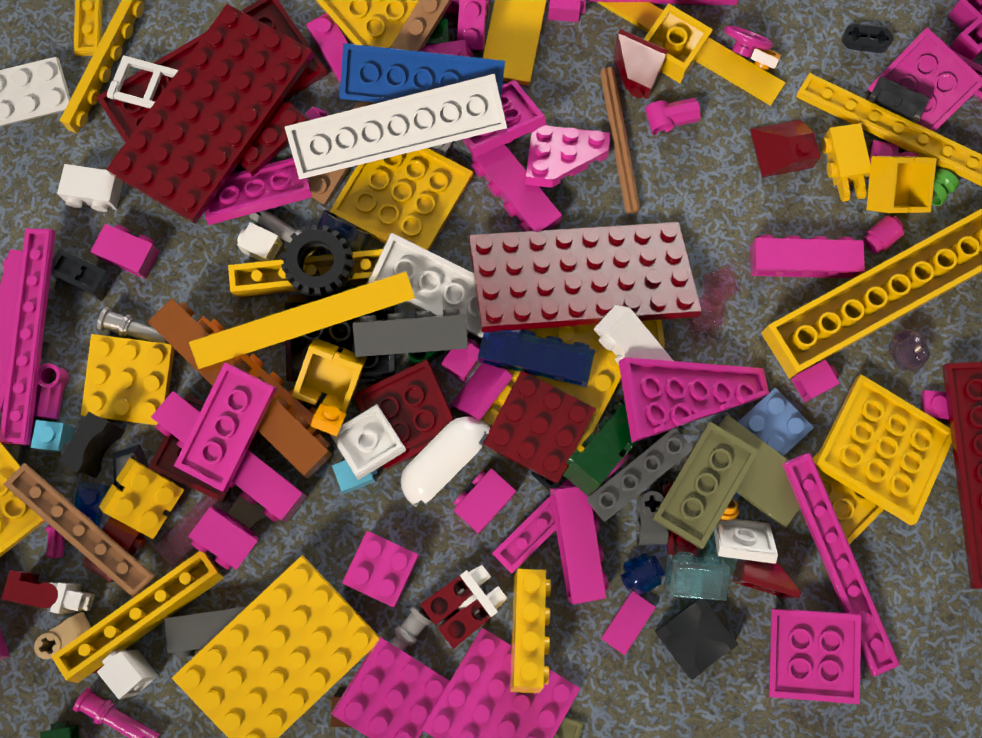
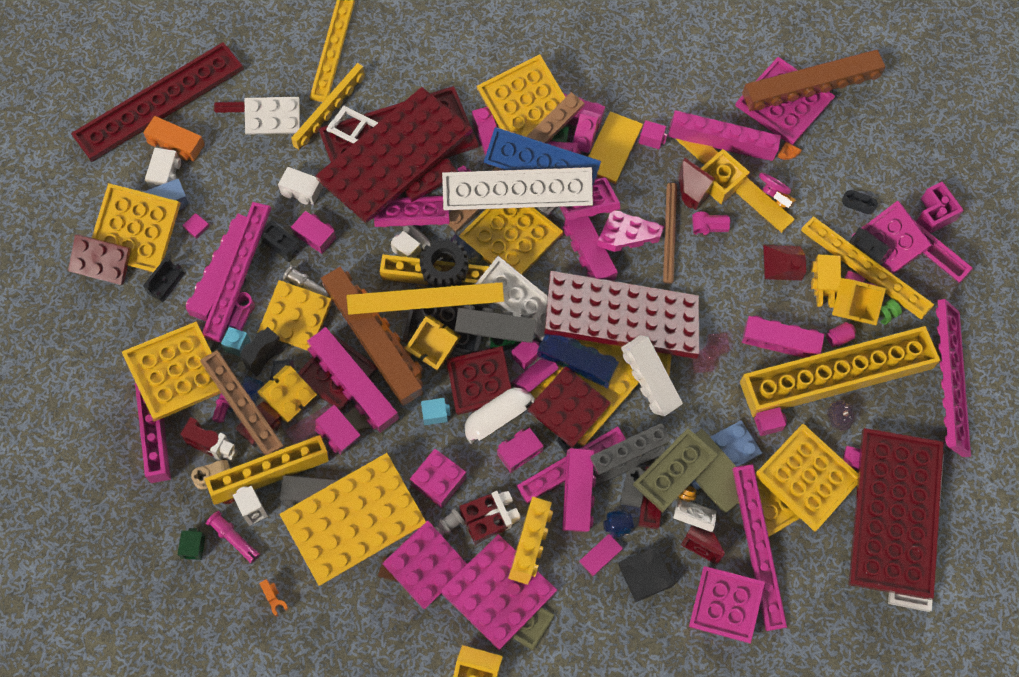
camera: 10 degrees right, 10 degrees down
(225, 427) = (357, 356): dark pink plate -> none
(328, 419) = (426, 368): light orange plate -> none
(368, 442) = (449, 390): white tile -> none
(601, 452) = (620, 424): dark green wedge -> none
(675, 393) = (669, 403): dark pink wing -> none
(697, 576) = (656, 531): clear light blue brick -> none

